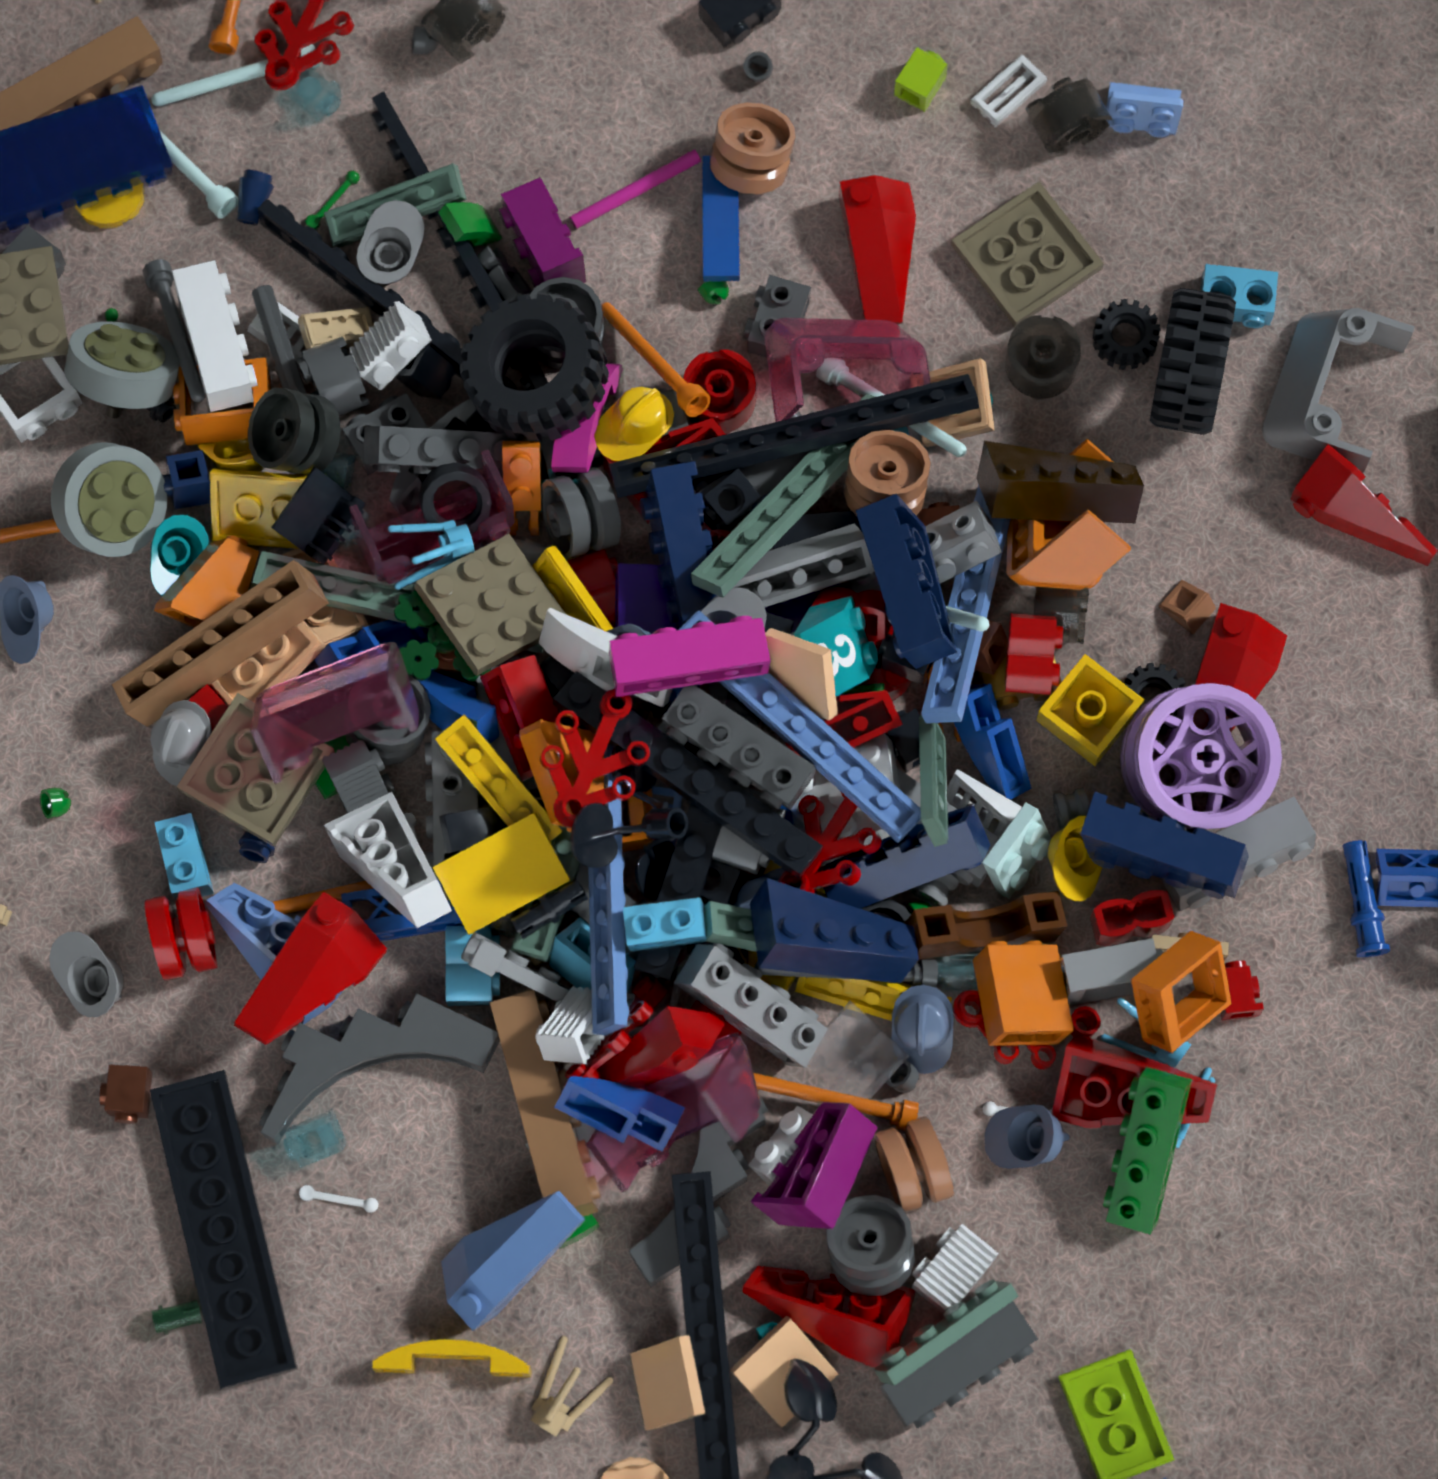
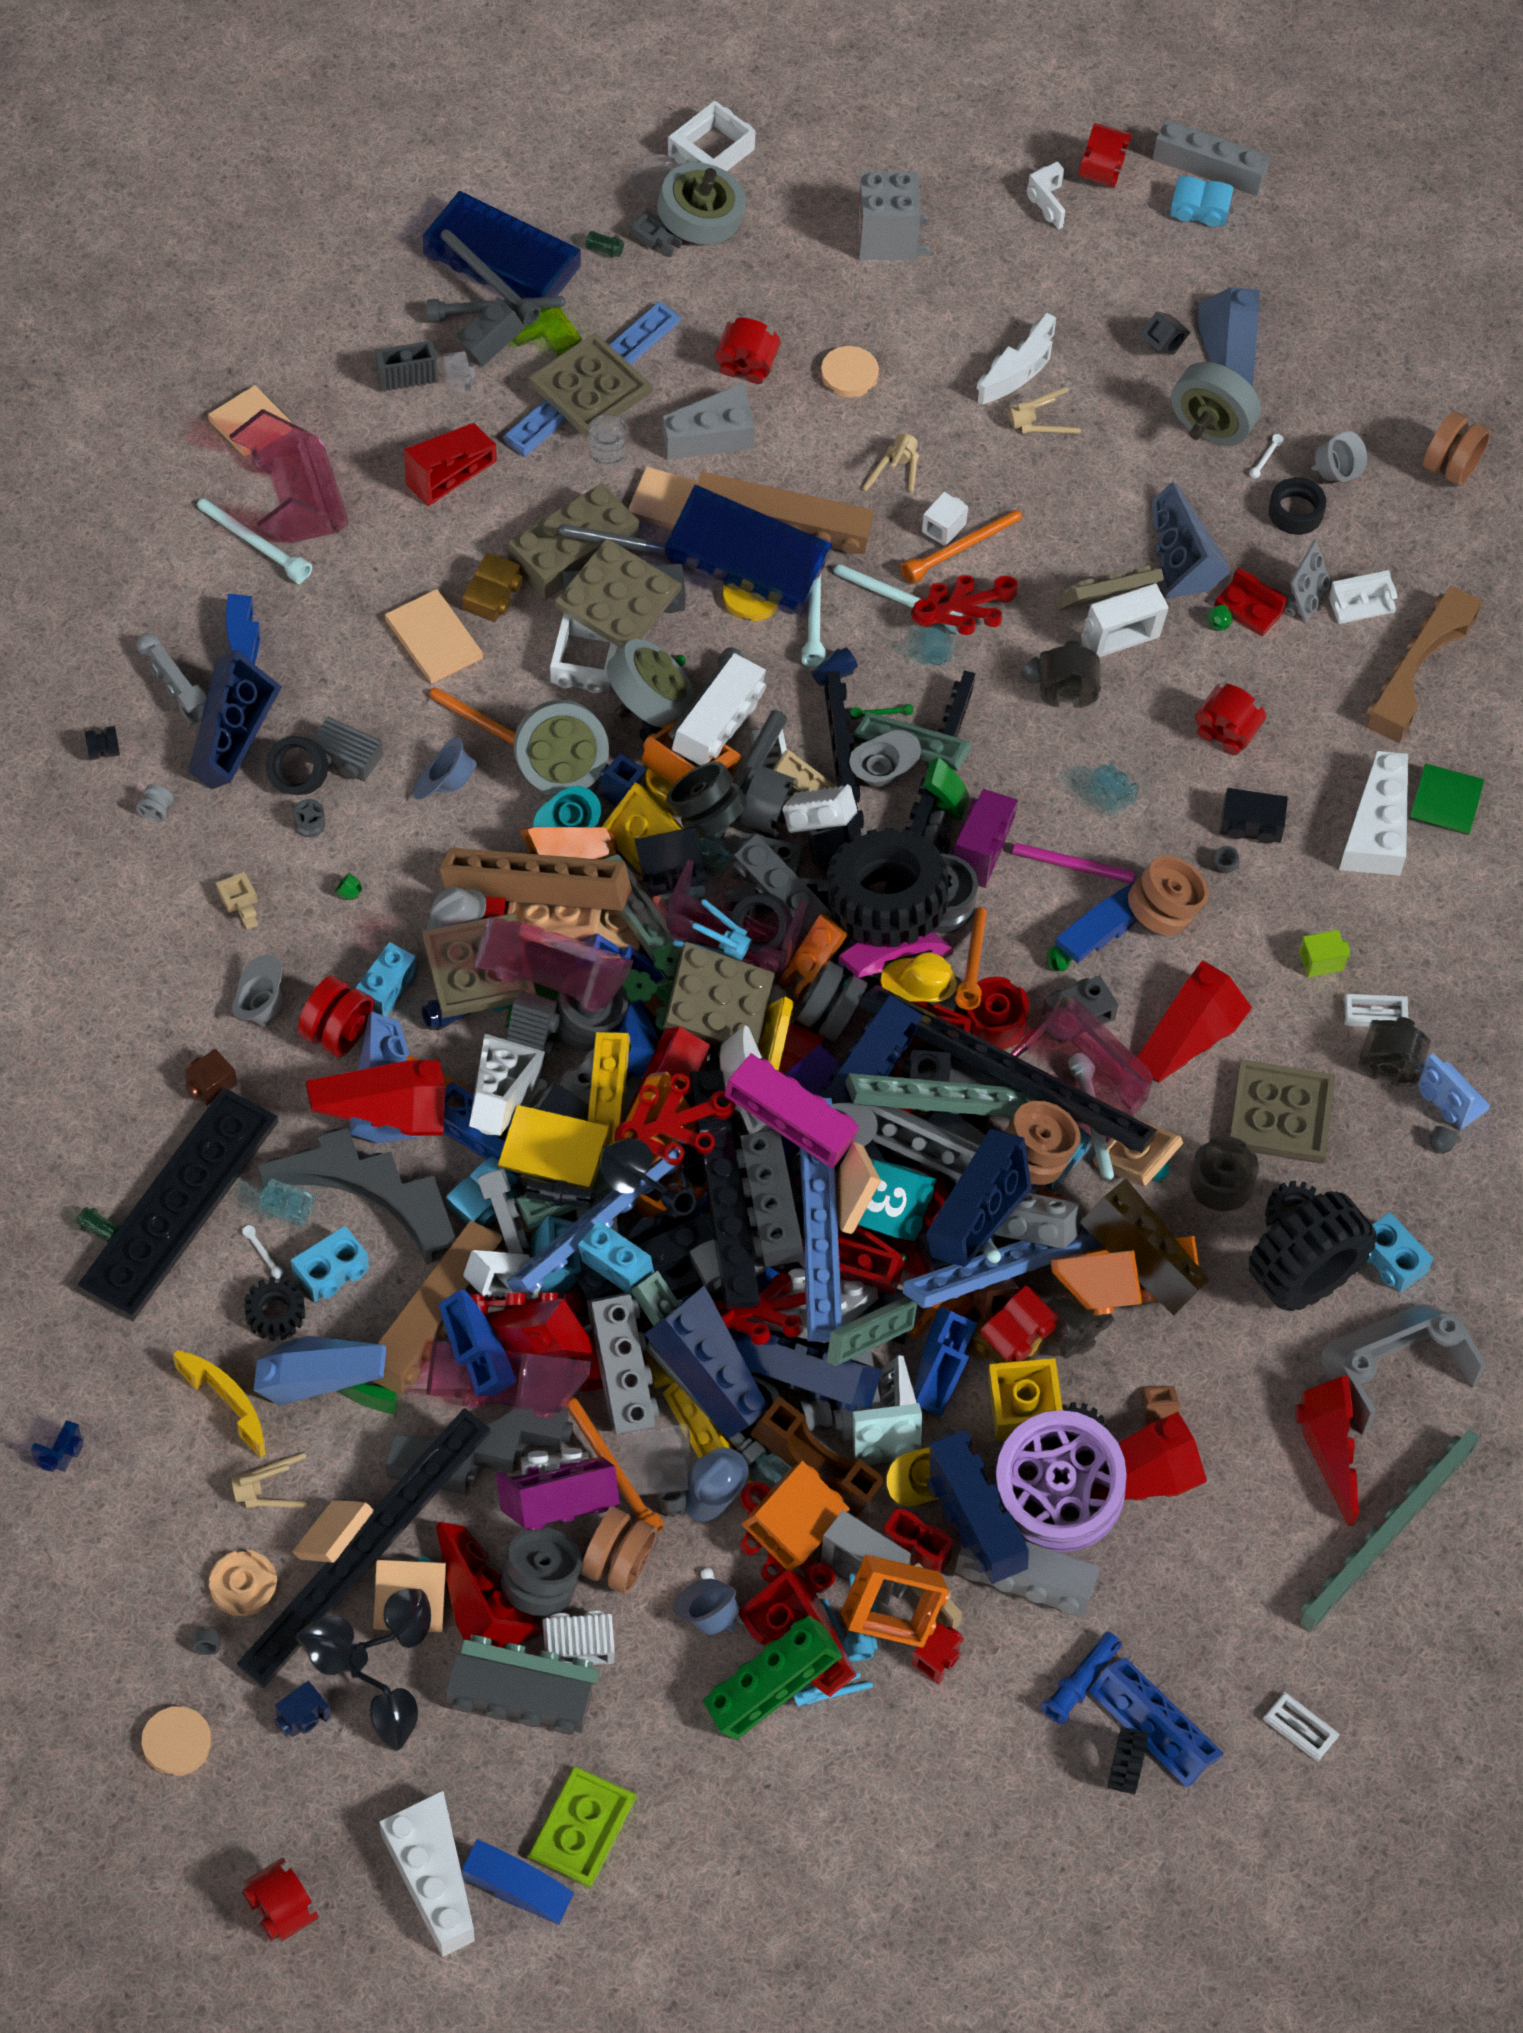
camera: 40 degrees right, 15 degrees down
(389, 1223) = (274, 1291): none -> black tyre
(401, 1155) = (325, 1259): none -> medium azure brick
(600, 90) = (1112, 789): none -> clear light blue brick
(1174, 157) = (1443, 1139): none -> dark grey hinge

